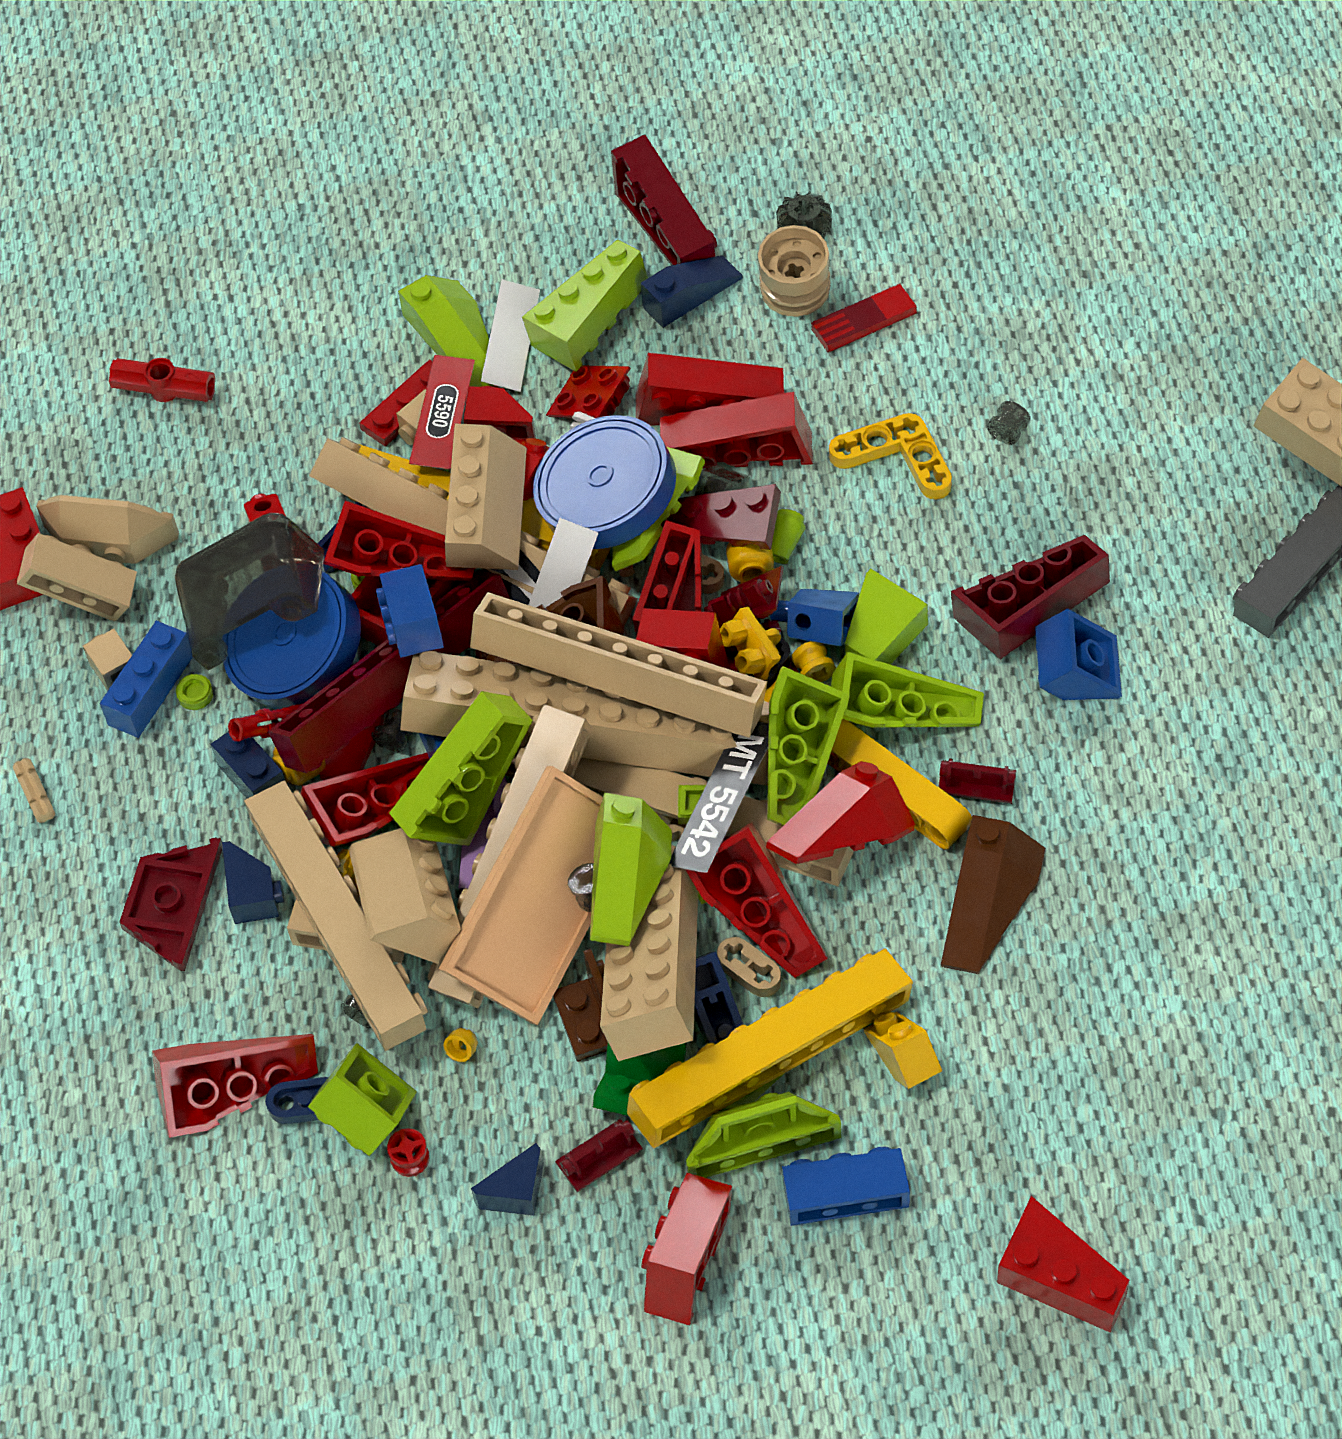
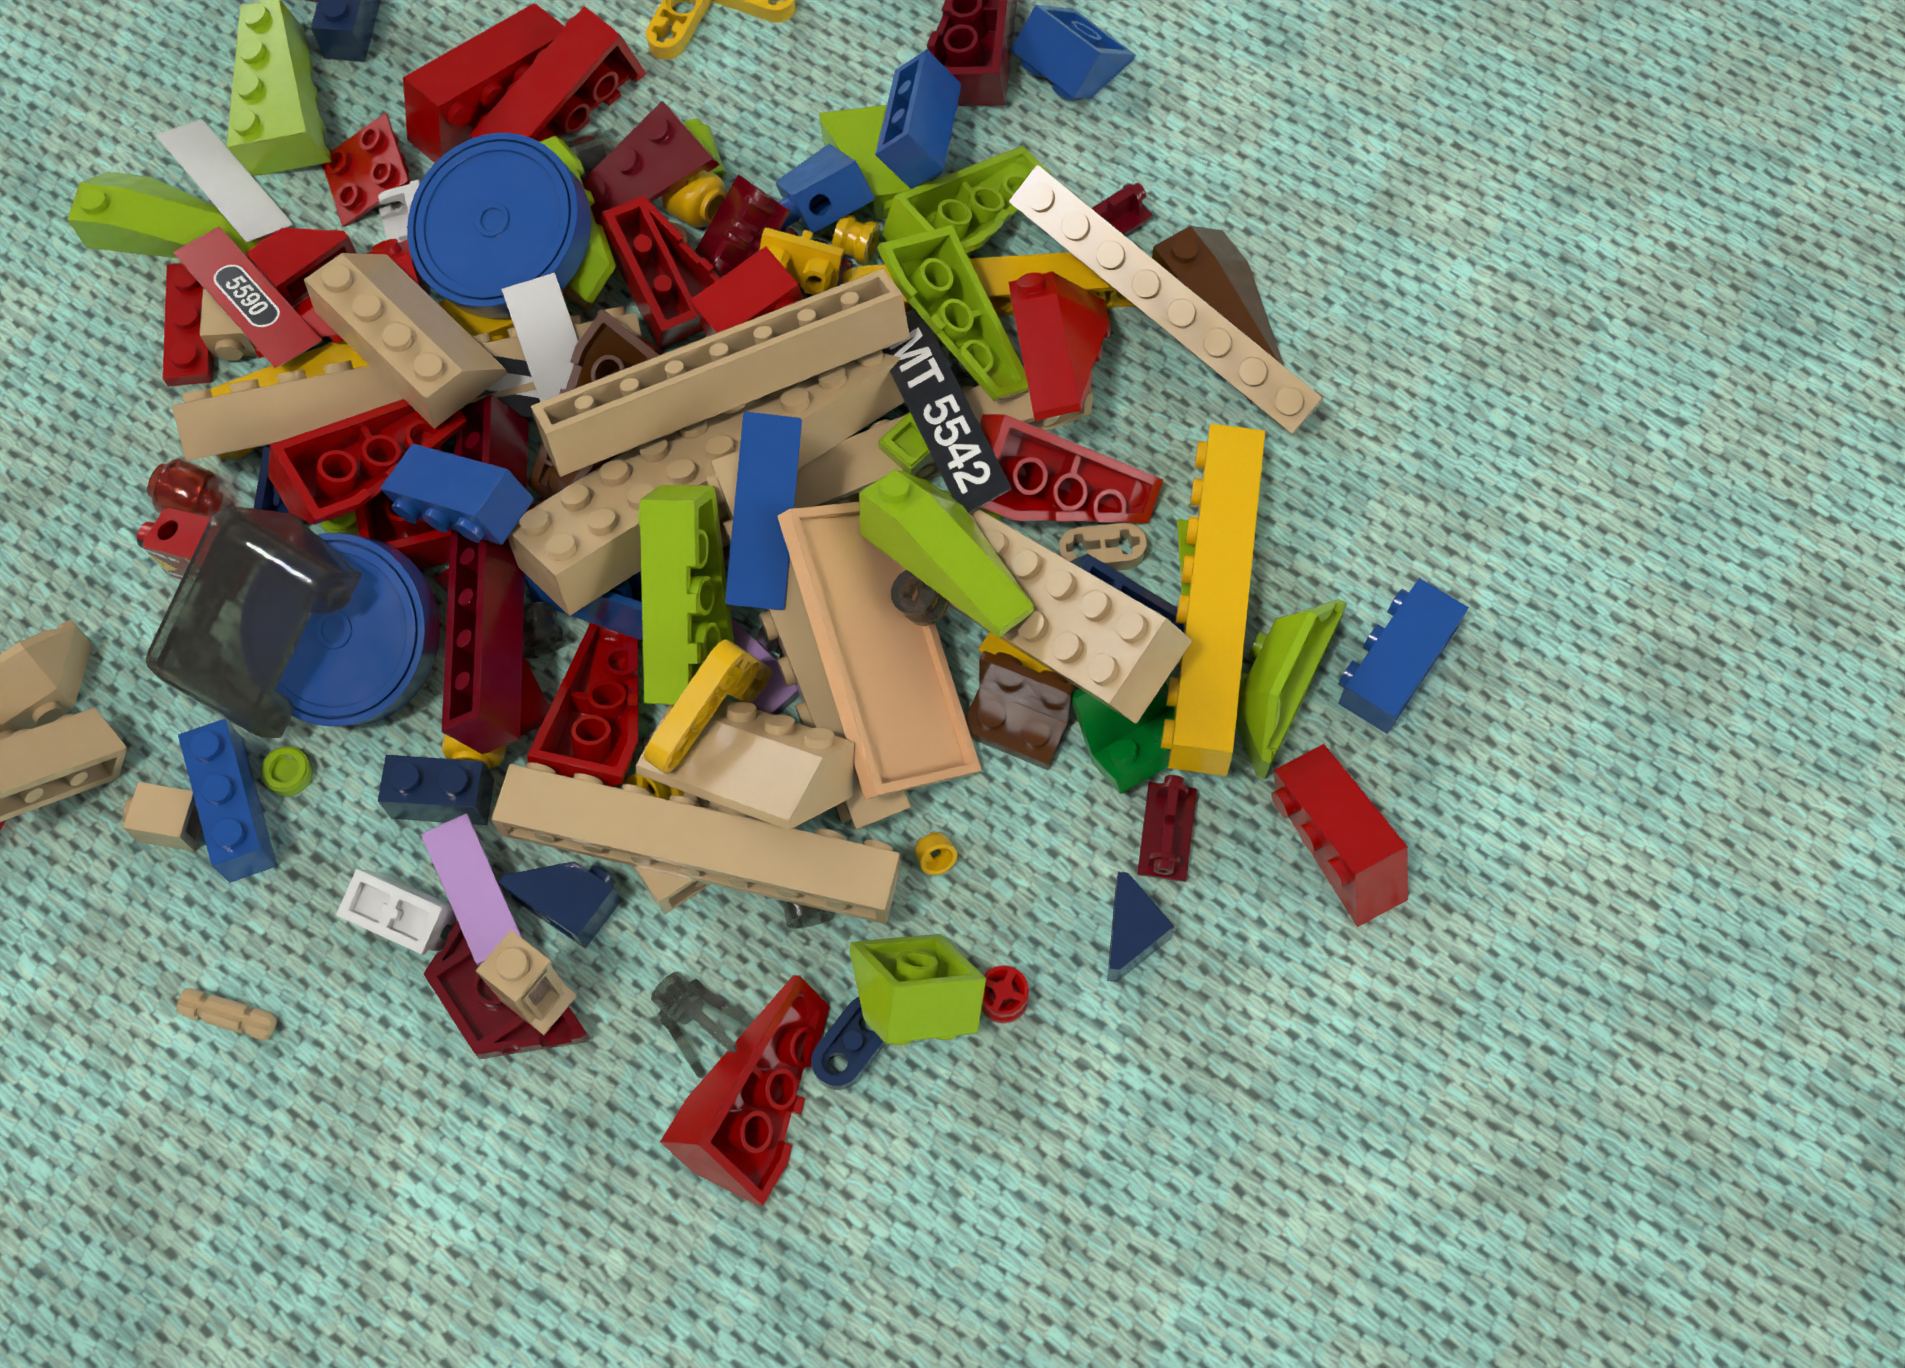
camera: 50 degrees left, 10 degrees up
(163, 812) = (396, 911): none -> white hinge
(171, 901) = (526, 982): none -> tan window
(205, 836) = (470, 885): none -> lavender tile
(244, 997) = (682, 1002): none -> clear smoke plant
(247, 726) = (414, 729): red pin -> none
(301, 495) = (185, 488): none -> clear red head
(431, 826) = (723, 672): none -> yellow beam
(555, 746) = (762, 492): none -> blue sticker
(903, 1048) = (1314, 495): yellow slope -> none
(916, 620) = (919, 120): none -> blue brick
(937, 854) = (1166, 300): none -> tan brick
(1061, 1269) = (1642, 556): red wedge -> none

